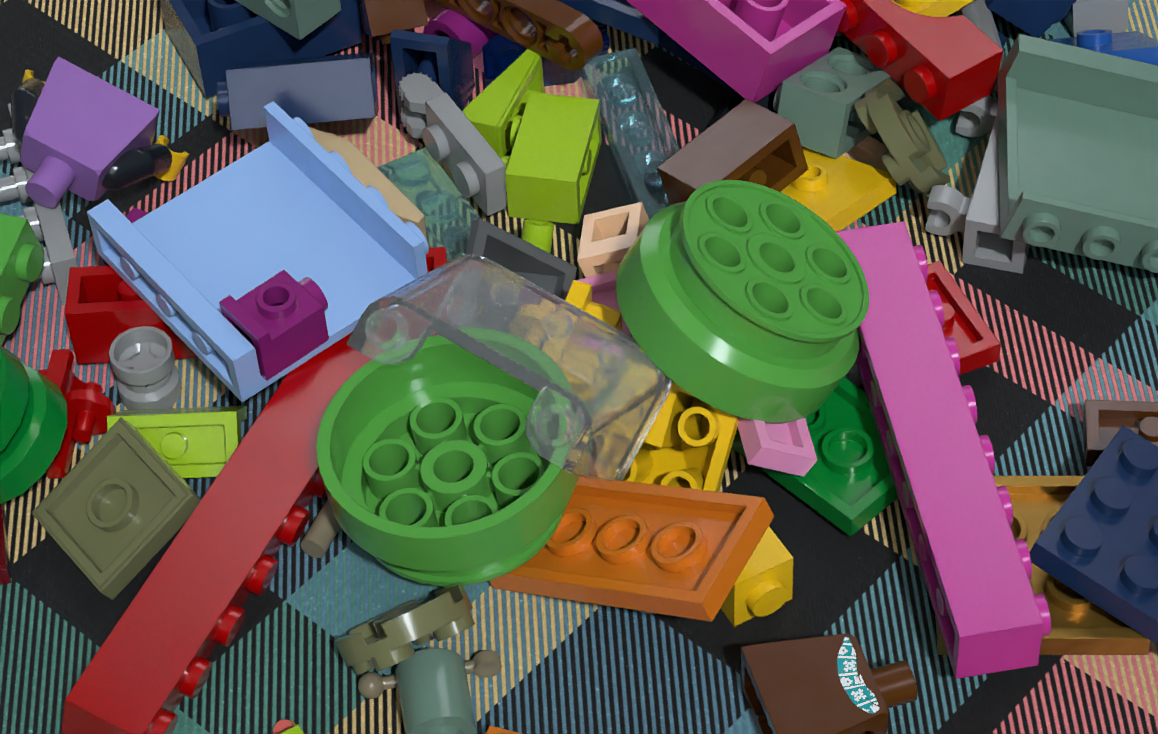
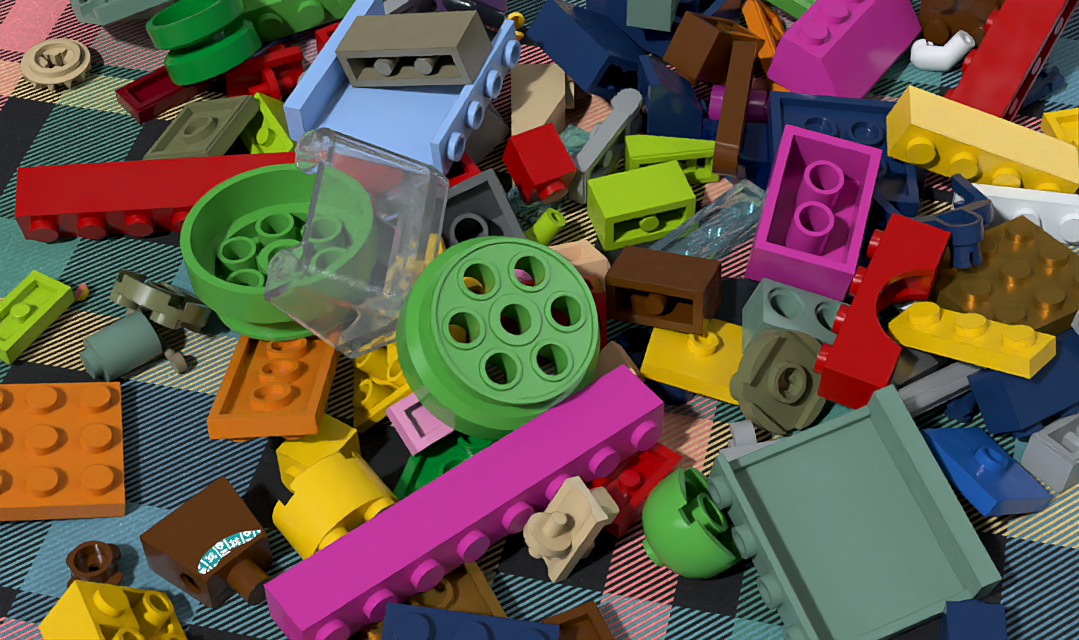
camera: 60 degrees right, 0 degrees up
(248, 202) = (414, 49): none -> dark tan brick
(280, 320) = (339, 109): magenta brick -> none
(460, 191) = (539, 164): none -> red brick
(863, 562) = (330, 502): none -> yellow brick
(1000, 372) = (569, 526): none -> tan hips
(1045, 286) = (687, 527): none -> bright green cylinder

